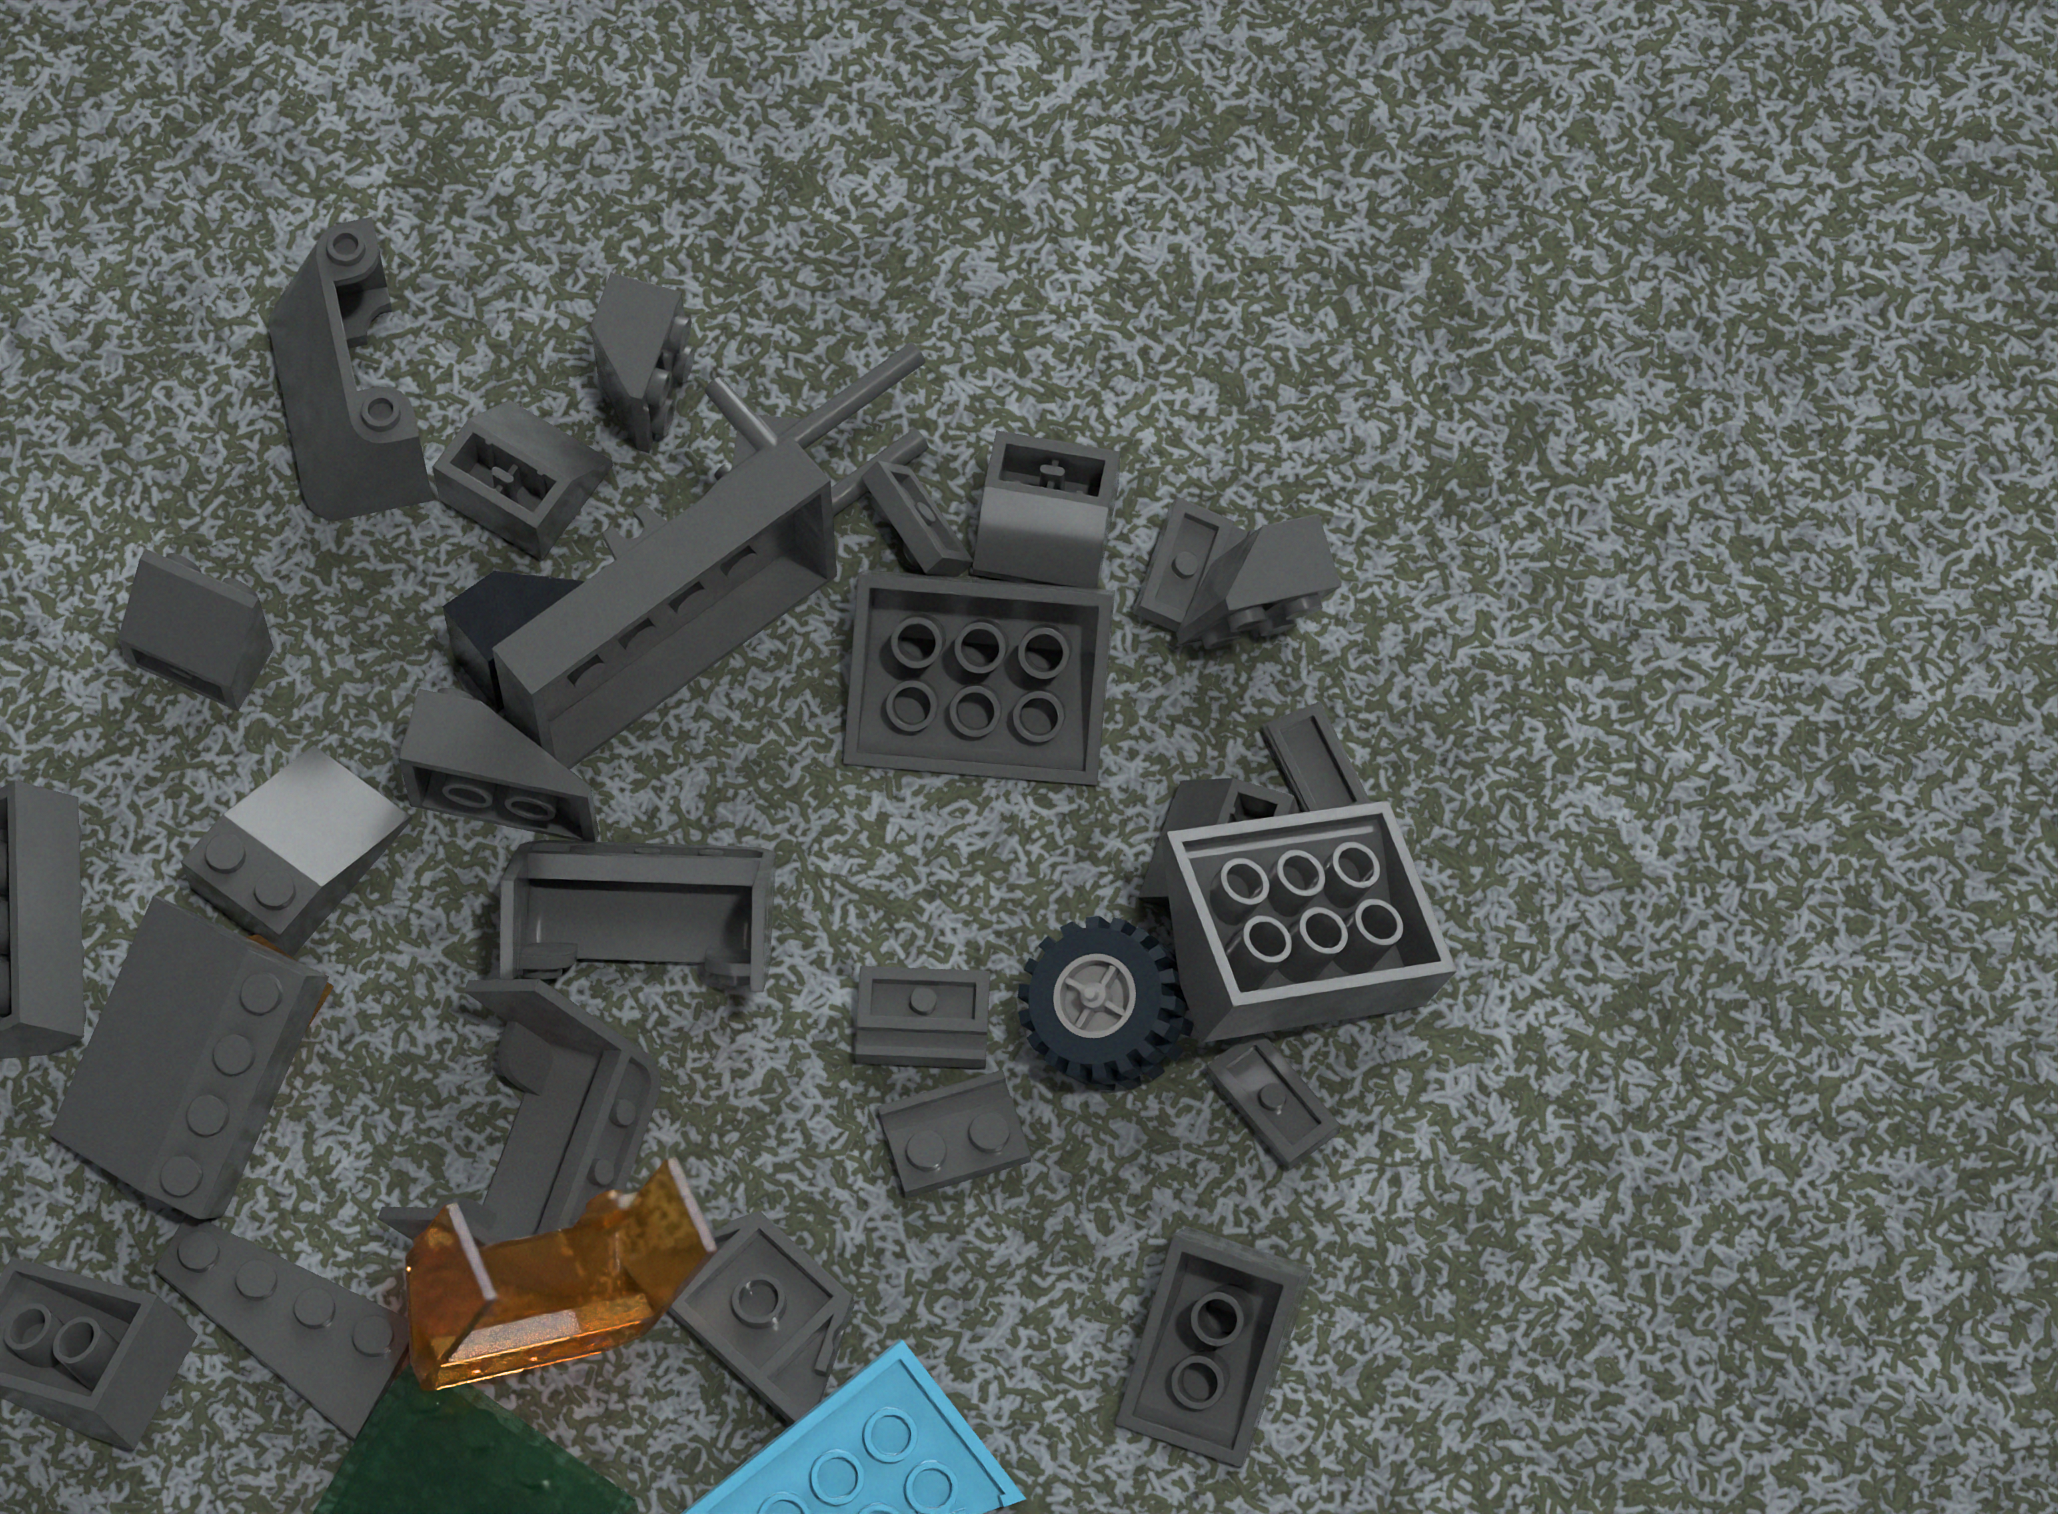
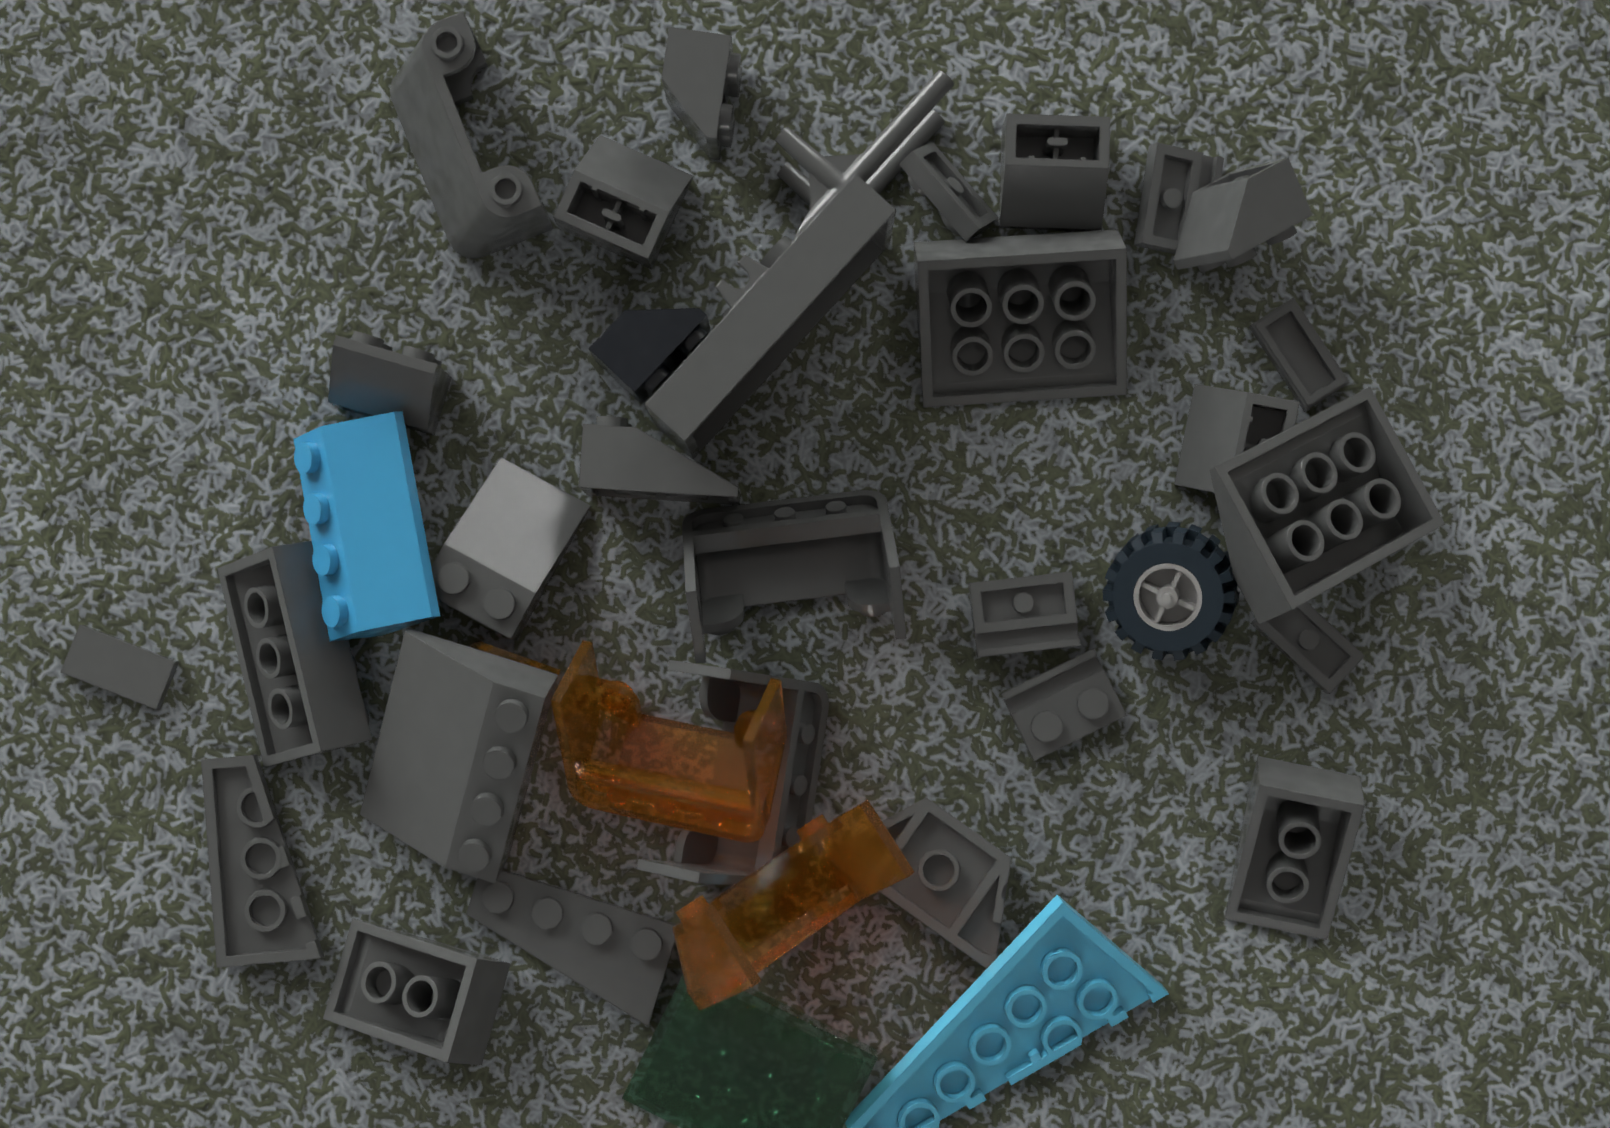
camera: 10 degrees left, 20 degrees up
(131, 784) = (366, 527): none -> dark azure slope
(434, 1128) = (663, 766): none -> clear orange windscreen

